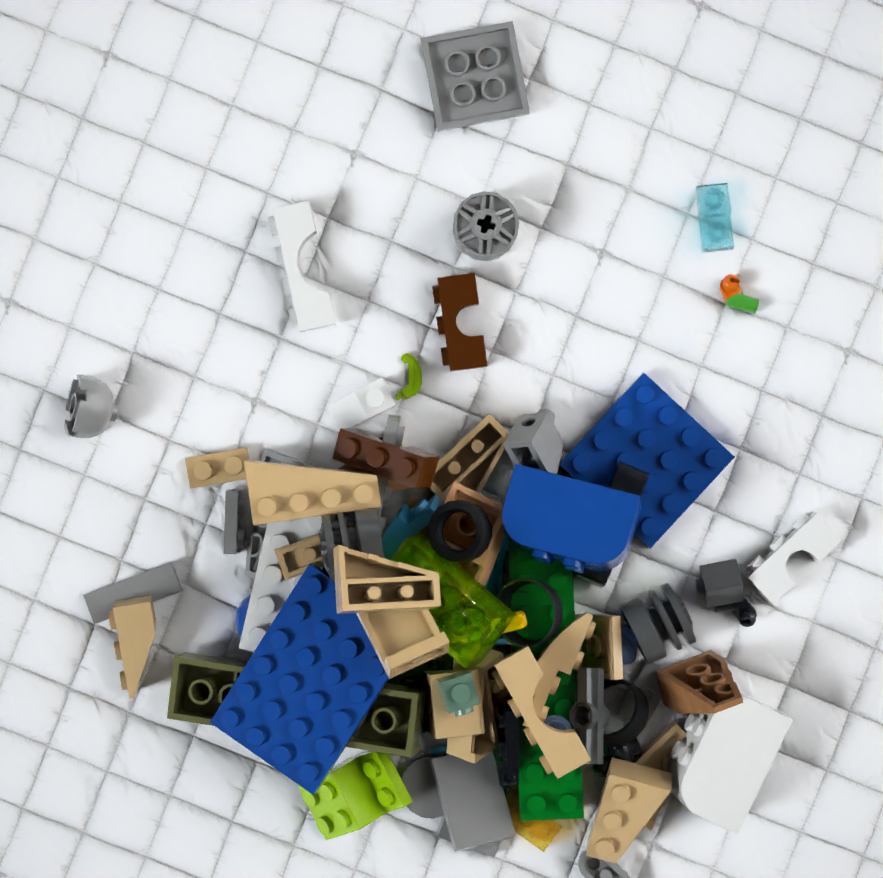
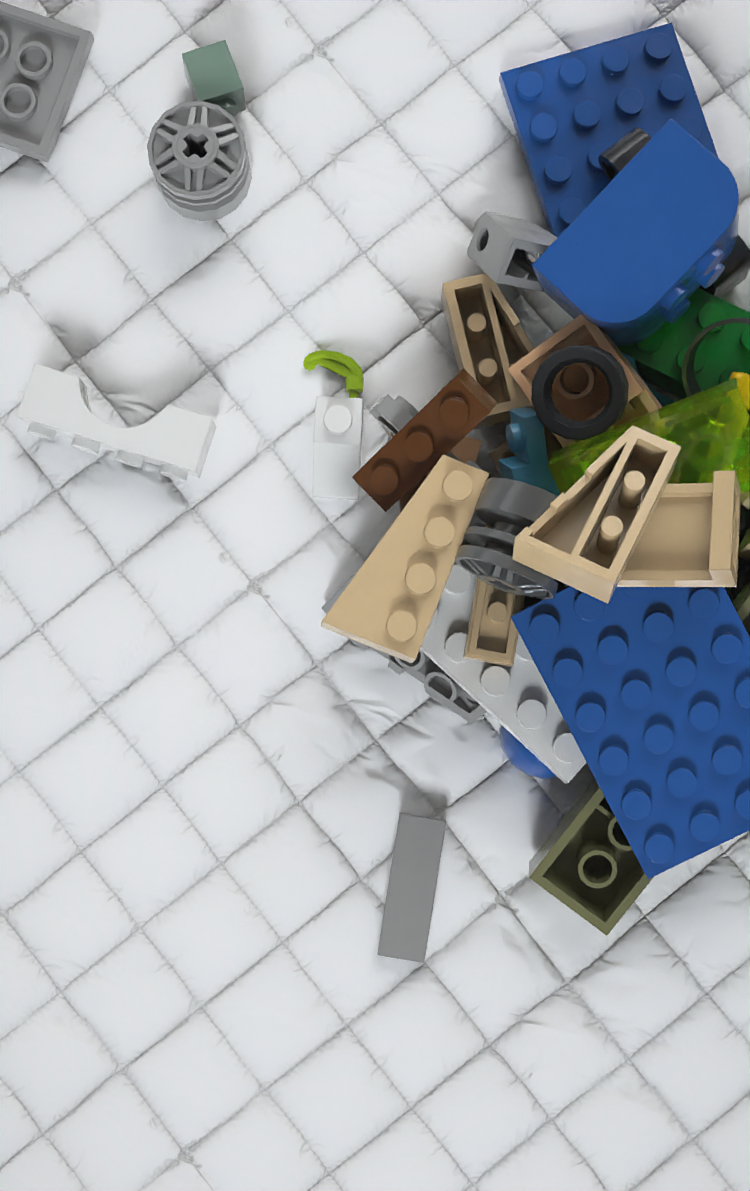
camera: 60 degrees left, 5 degrees down
(89, 407) = (135, 803): light grey cylinder -> none
(136, 630) = (469, 912): tan slope -> none
(217, 467) = (312, 680): tan plate -> none
(234, 508) = (377, 688): light grey plate -> none
(455, 294) = (338, 283): reddish brown arch -> none
(539, 206) = (214, 77): none -> sand green brick

